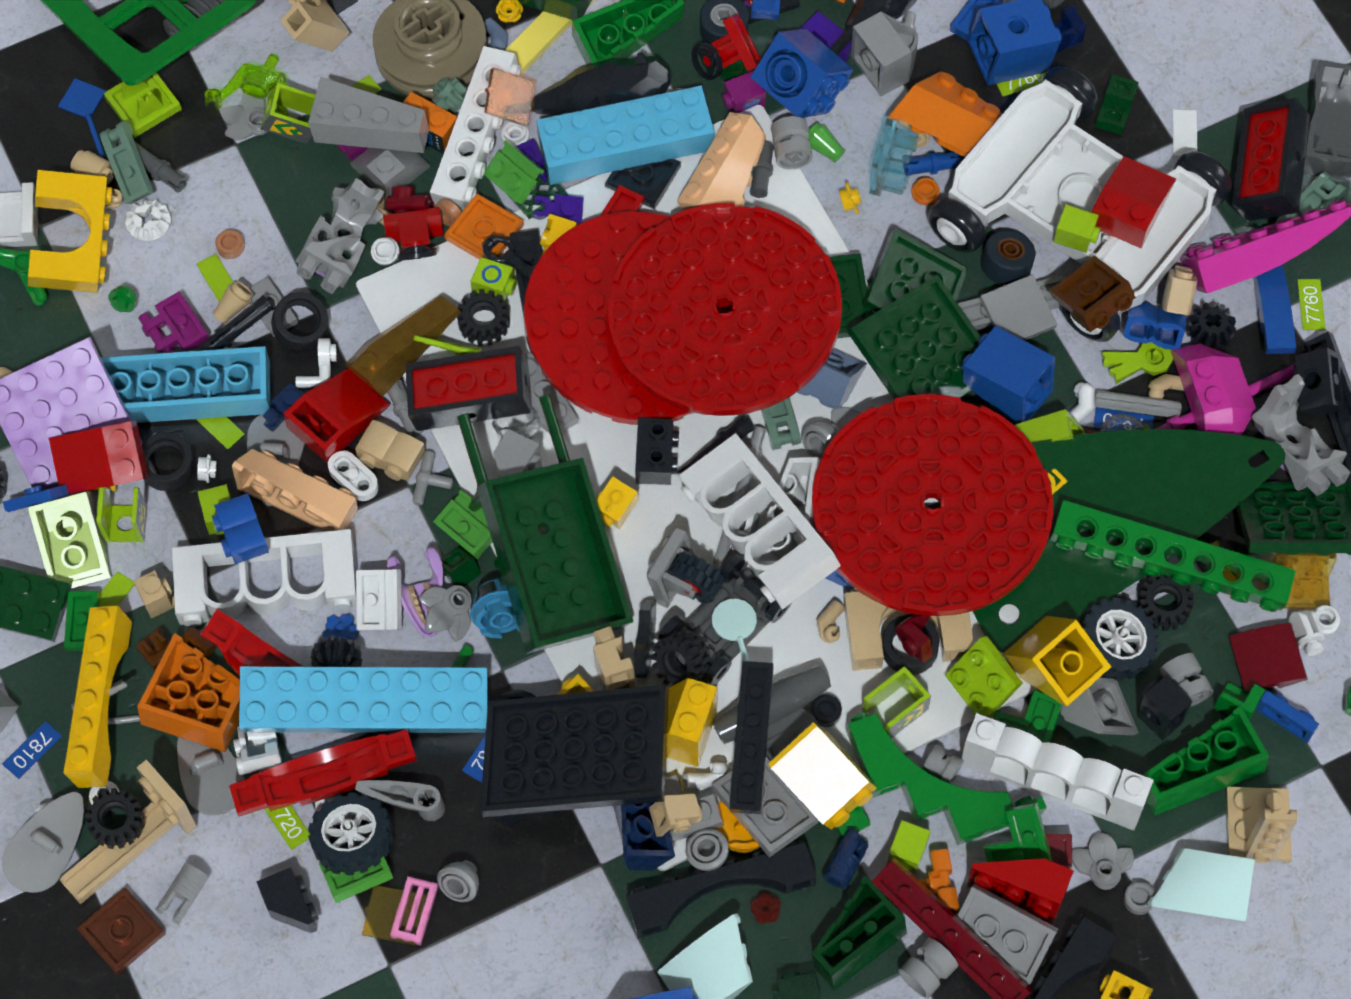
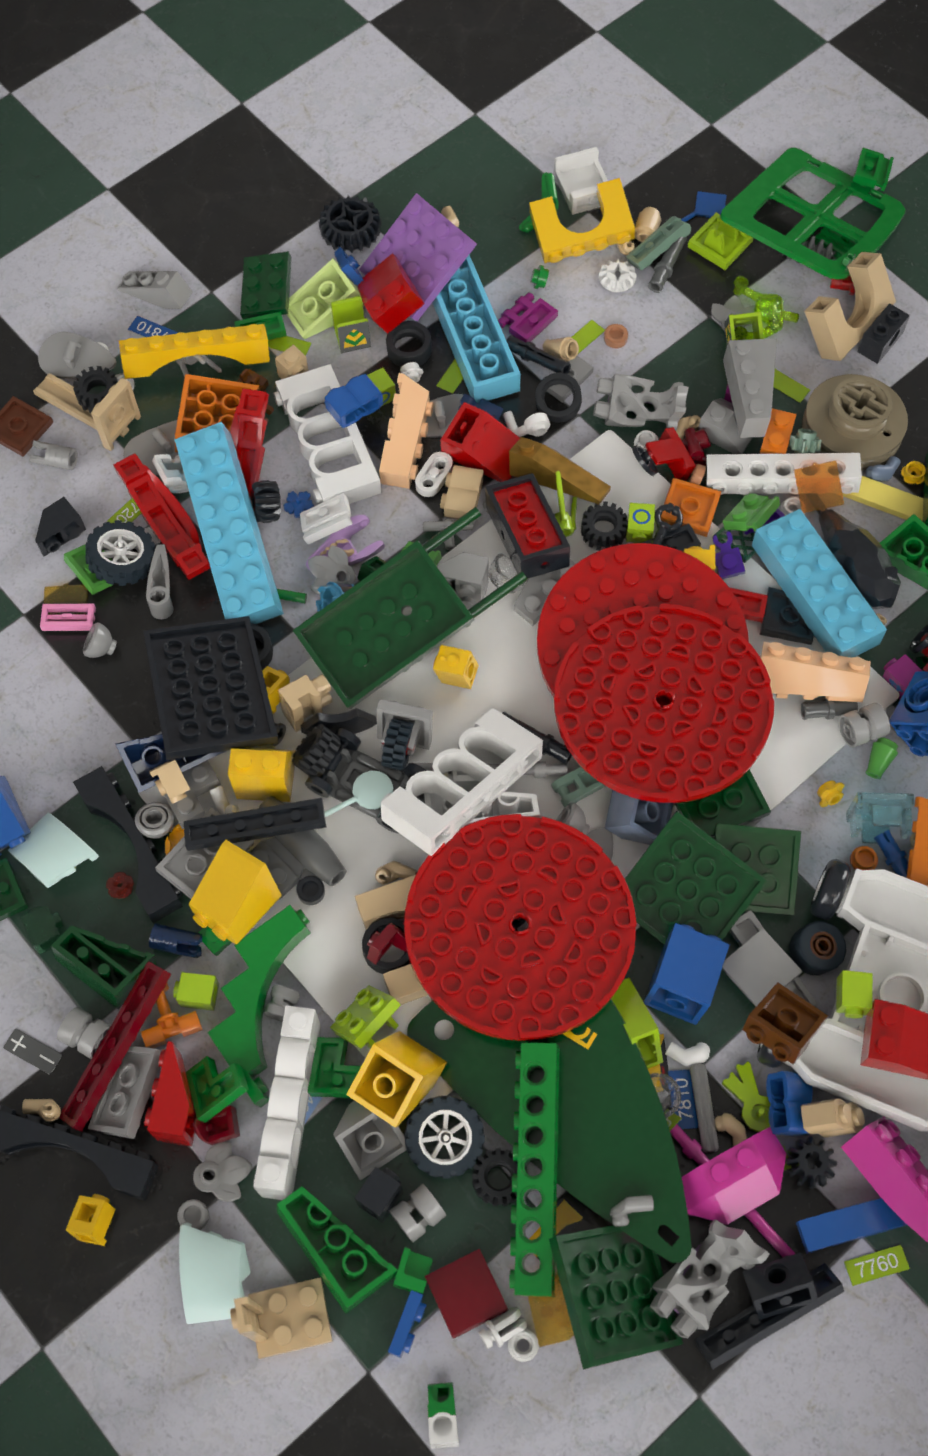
camera: 75 degrees right, 0 degrees up
(655, 451) = (518, 688): black brick -> none
(904, 679) = (335, 968): lime piece -> none
(1227, 480) = (630, 1205): none -> light grey arm

